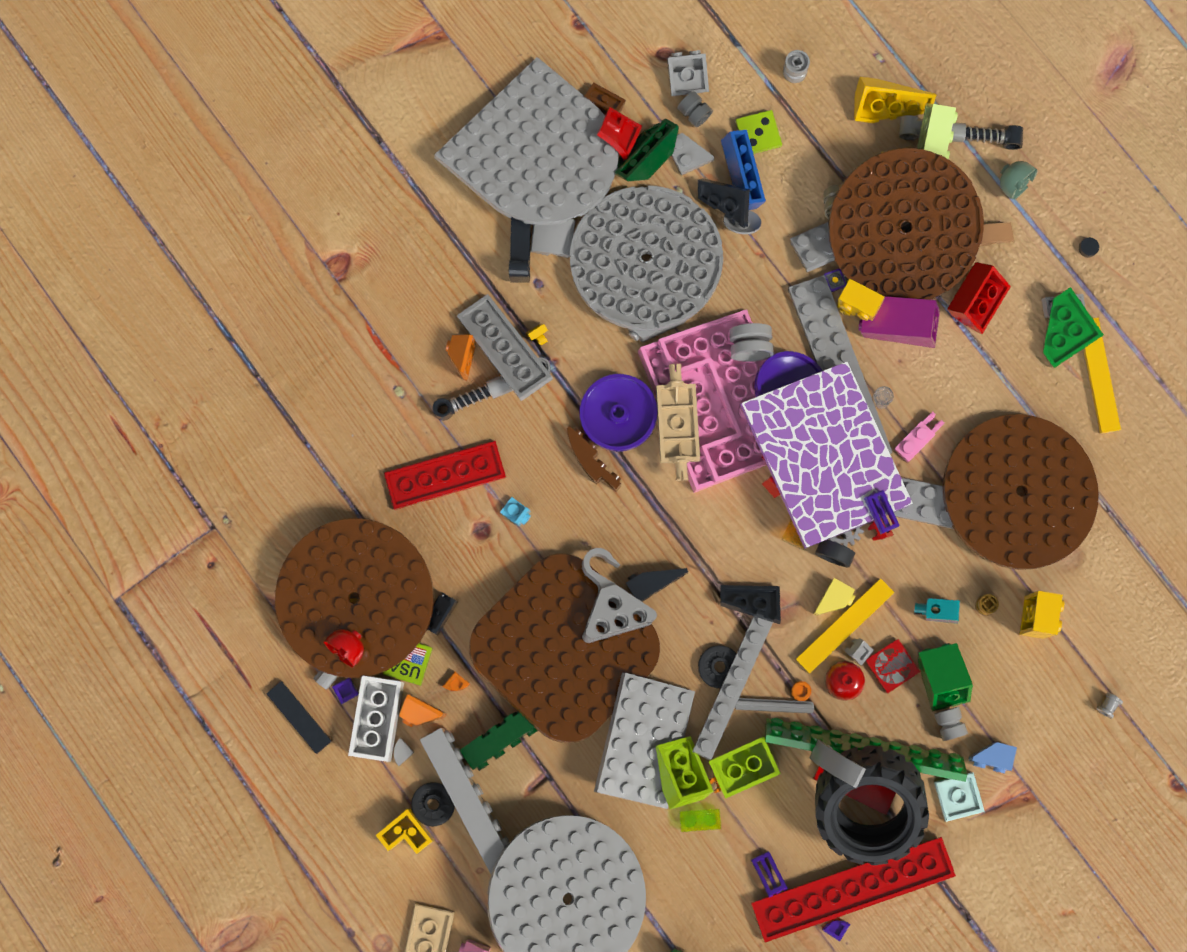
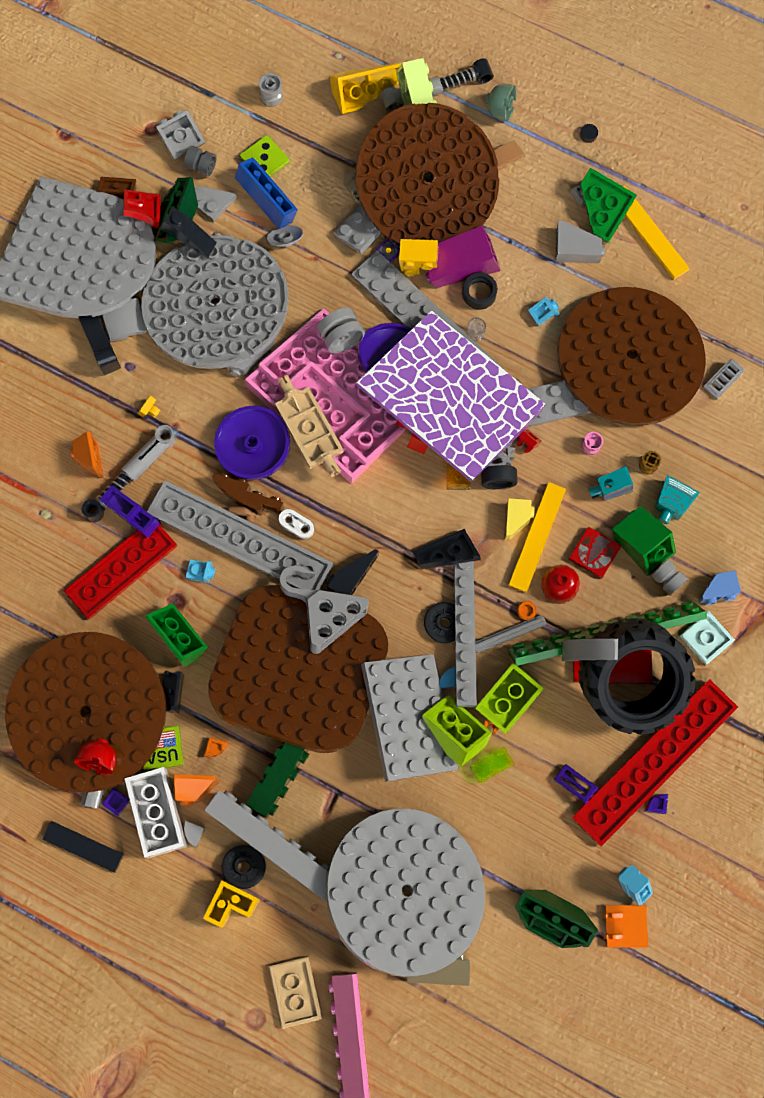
camera: 30 degrees left, 5 degrees down
(468, 563) = (177, 634): none -> green slope
(476, 426) = (130, 511): none -> dark purple slope
(504, 347) = (124, 431): light grey plate -> none
(564, 496) = (236, 536): none -> light grey plate
(581, 474) = (243, 511): none -> medium nougat arm
(624, 509) = (298, 522): none -> white plate
(650, 180) = (188, 232): none -> black slope
(697, 721) = (448, 679): none -> dark azure tile
(726, 198) = (262, 221): black wing -> none
(859, 651) = (560, 552): light grey tile -> none
(874, 513) = (520, 424): dark purple tile -> none
(905, 345) = (483, 278): none -> black tyre
(917, 439) = (522, 351): bright pink hinge -> none
(944, 559) = (592, 439): none -> bright pink wheel
(957, 408) = (544, 310): none -> medium azure bracket
(979, 297) = (517, 211): red slope -> none
(992, 651) = (674, 499): none -> teal torso
(1021, 357) = (577, 245): none -> light grey slope
(1041, 614) = (700, 447): yellow brick -> none
(1115, 549) = (732, 369): none -> light grey slope

